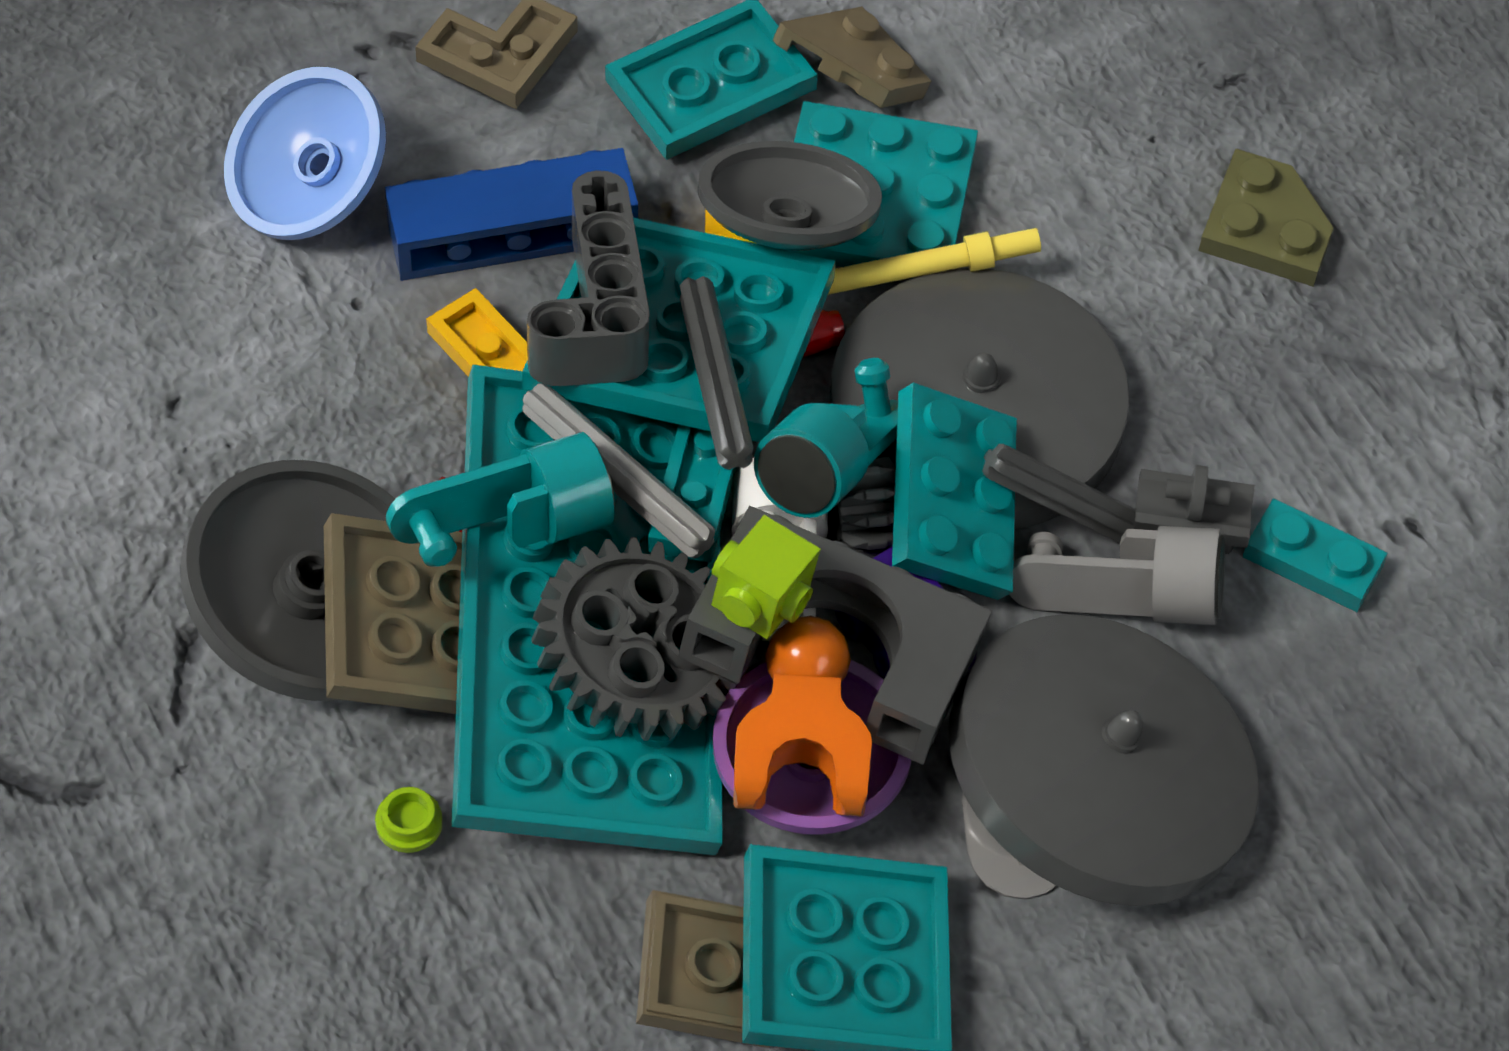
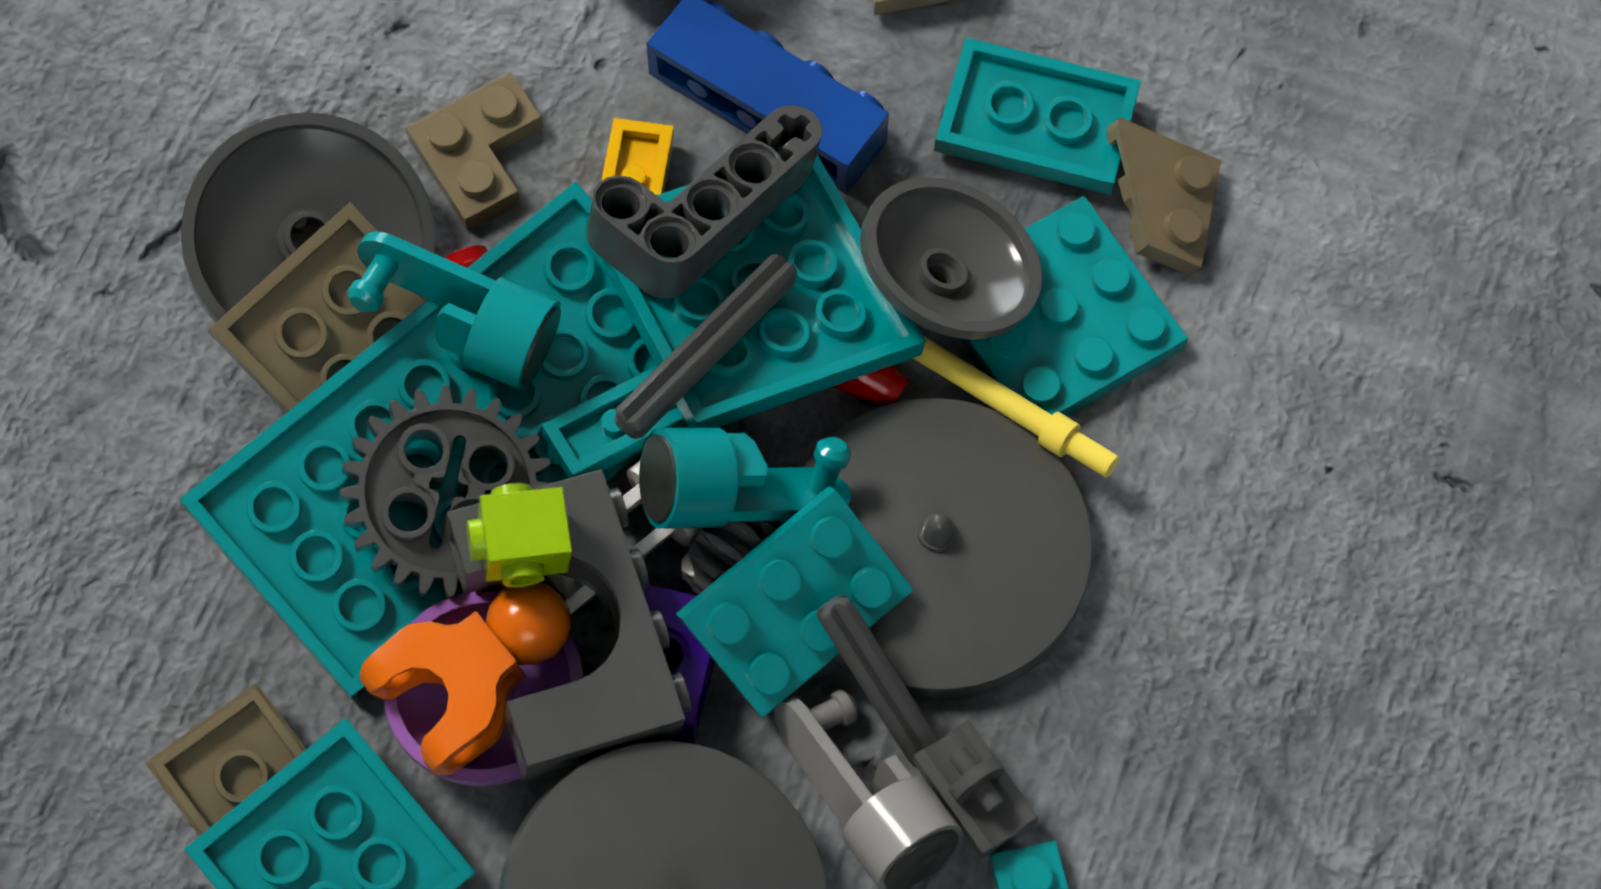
camera: 50 degrees right, 10 degrees up
(327, 426) = (462, 143): none -> dark tan plate
(408, 820) = (184, 467): lime plate -> none
(628, 477) = (572, 358): light grey axle -> none
(1267, 220) = (1334, 618): olive plate -> none

